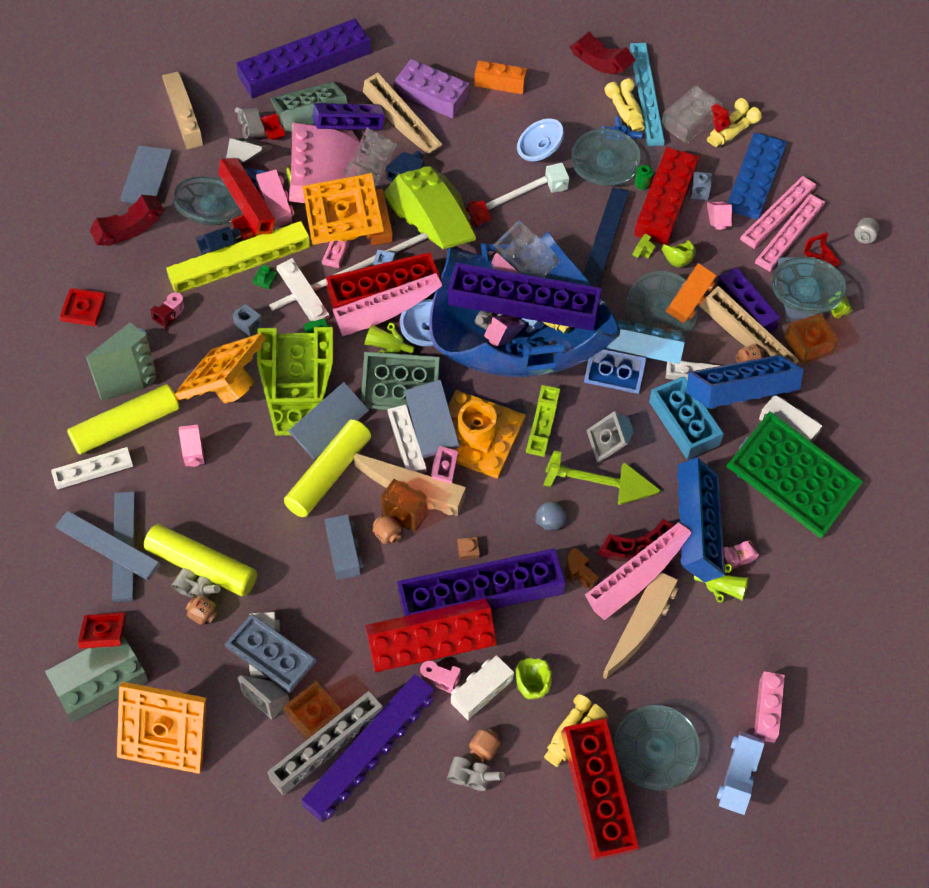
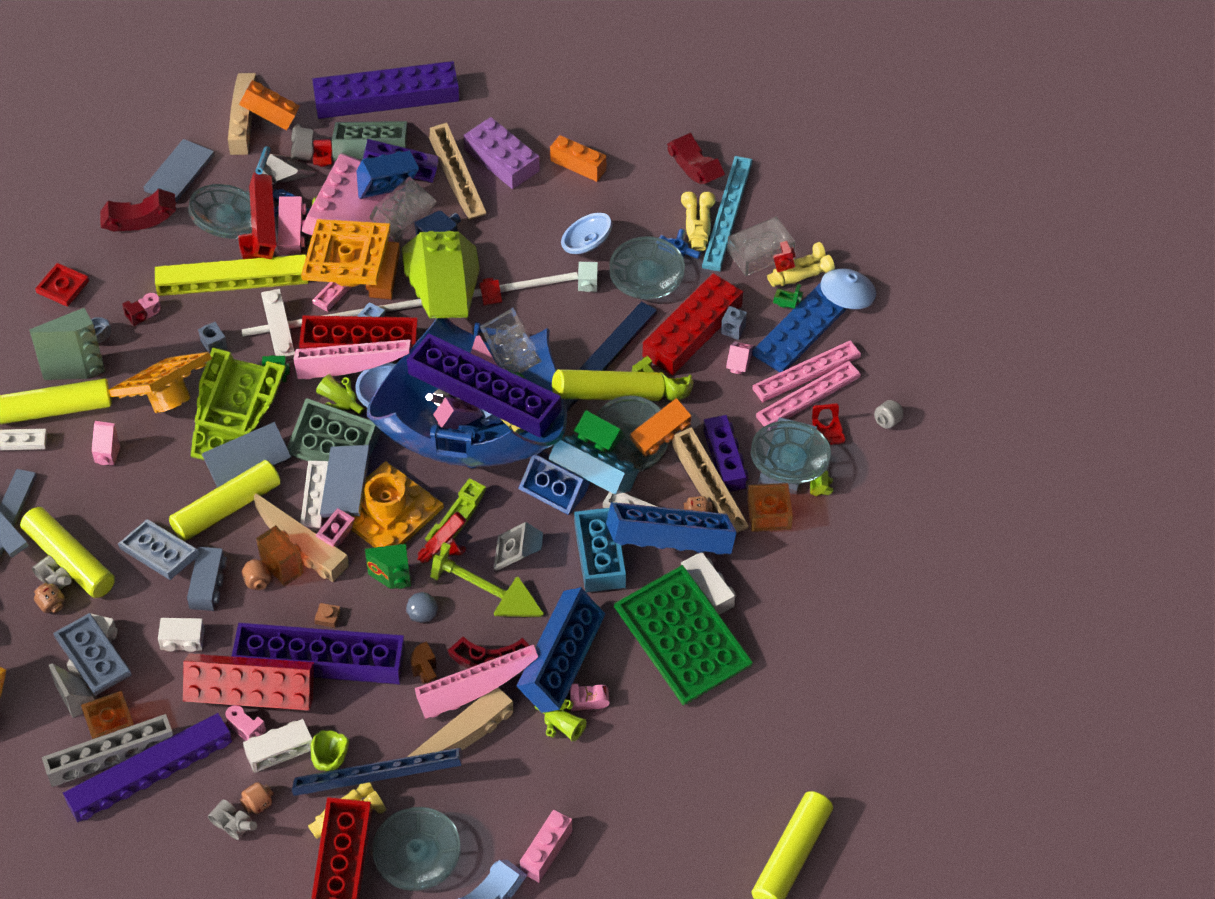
camera: 20 degrees right, 5 degrees down
(208, 95) = (269, 105): none -> orange brick
(217, 239) = (209, 251): dark blue torso -> none
(222, 146) = (263, 159): none -> dark azure piece
(265, 277) = (249, 301): green tile -> none
(286, 532) = (158, 549): none -> sand blue tile
(343, 607) = (181, 634): none -> white brick
(345, 129) = (384, 173): none -> blue slope
(509, 486) = (389, 565): none -> green slope
(546, 447) = (444, 534): none -> red piece
(589, 685) = (377, 771): none -> dark blue tile
(627, 267) = (607, 384): none -> neon yellow cylinder
(642, 311) = (599, 432): none -> green slope
(643, 177) = (676, 296): green brick -> none
(734, 154) = (788, 299): none -> green bracket
(780, 132) = (848, 288): none -> light blue dish

